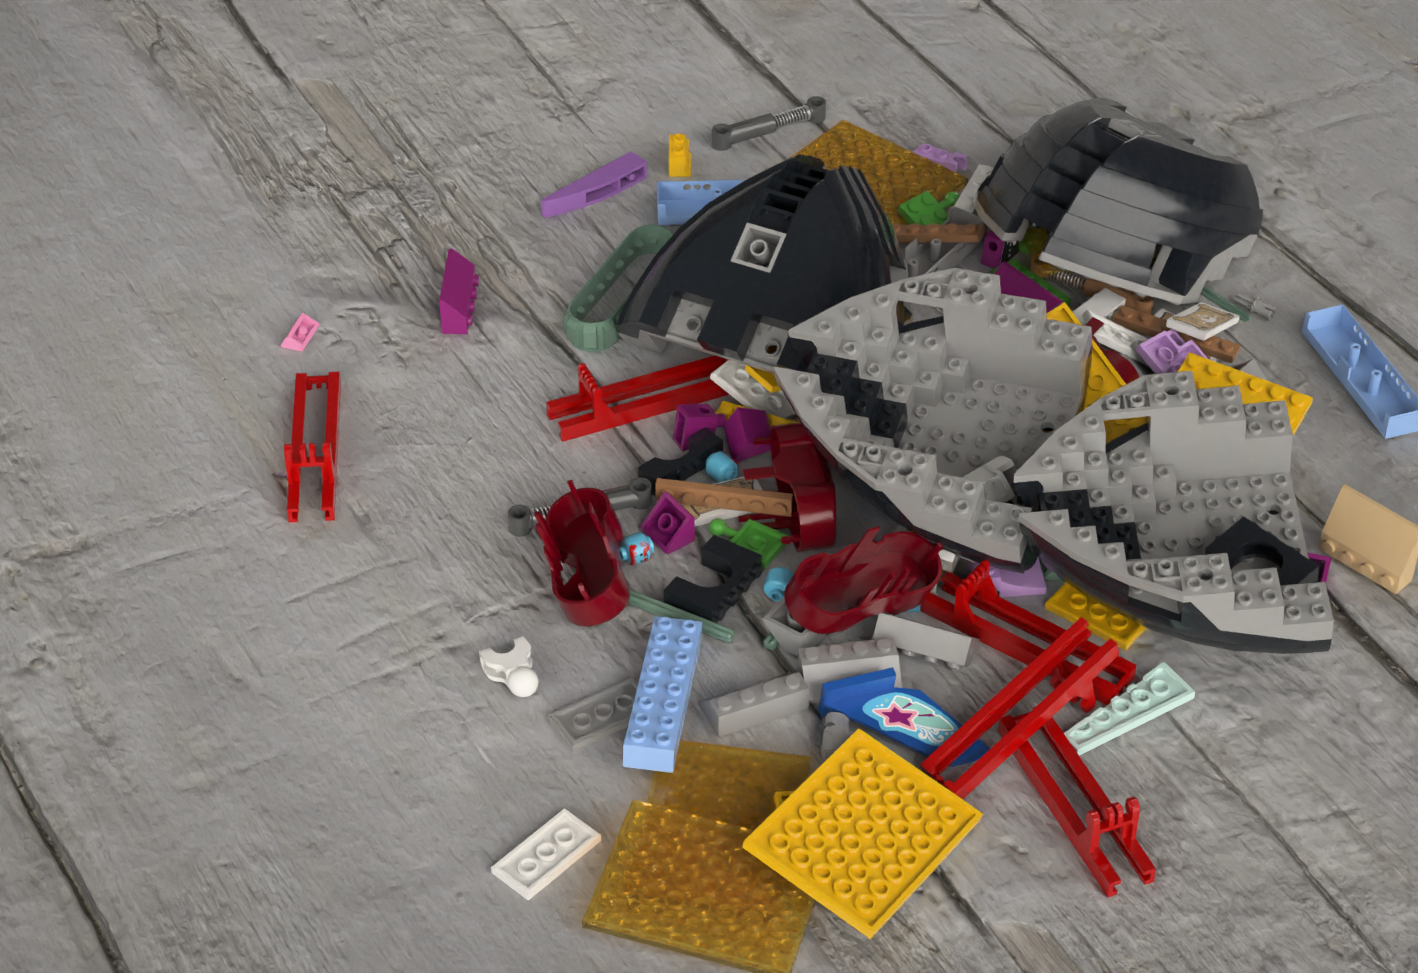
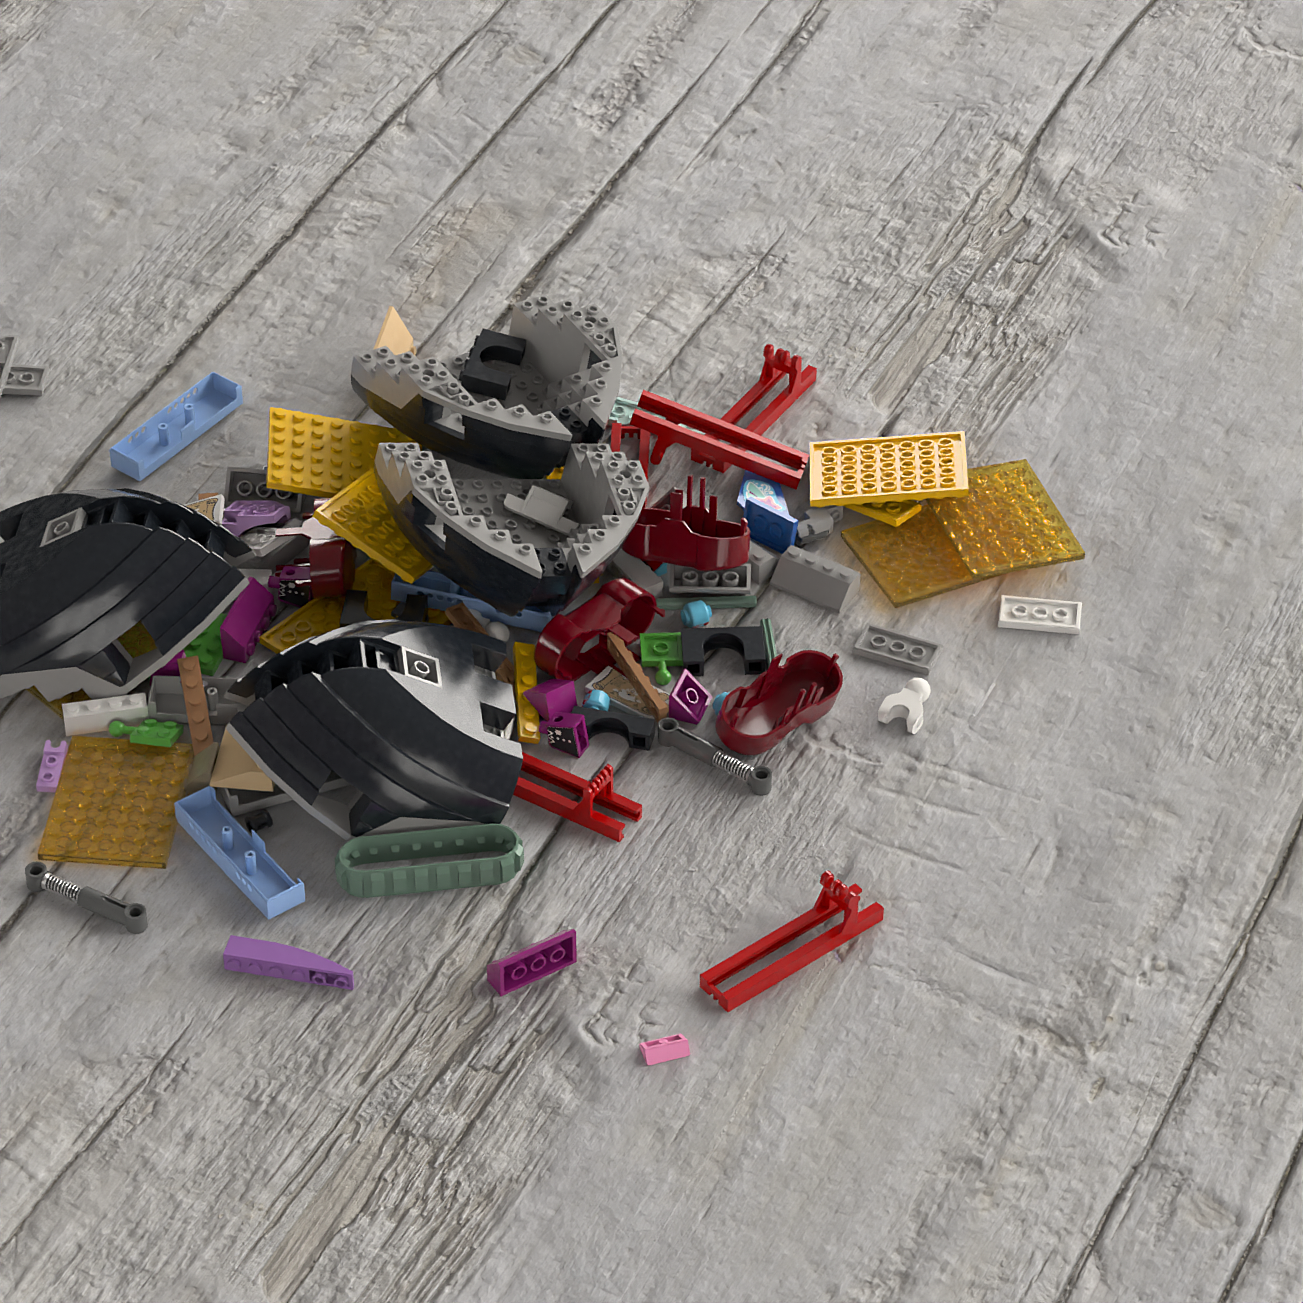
camera: 125 degrees left, 0 degrees up
(662, 695) = (862, 607): light blue piece -> none
(679, 156) = (189, 927): yellow window -> none

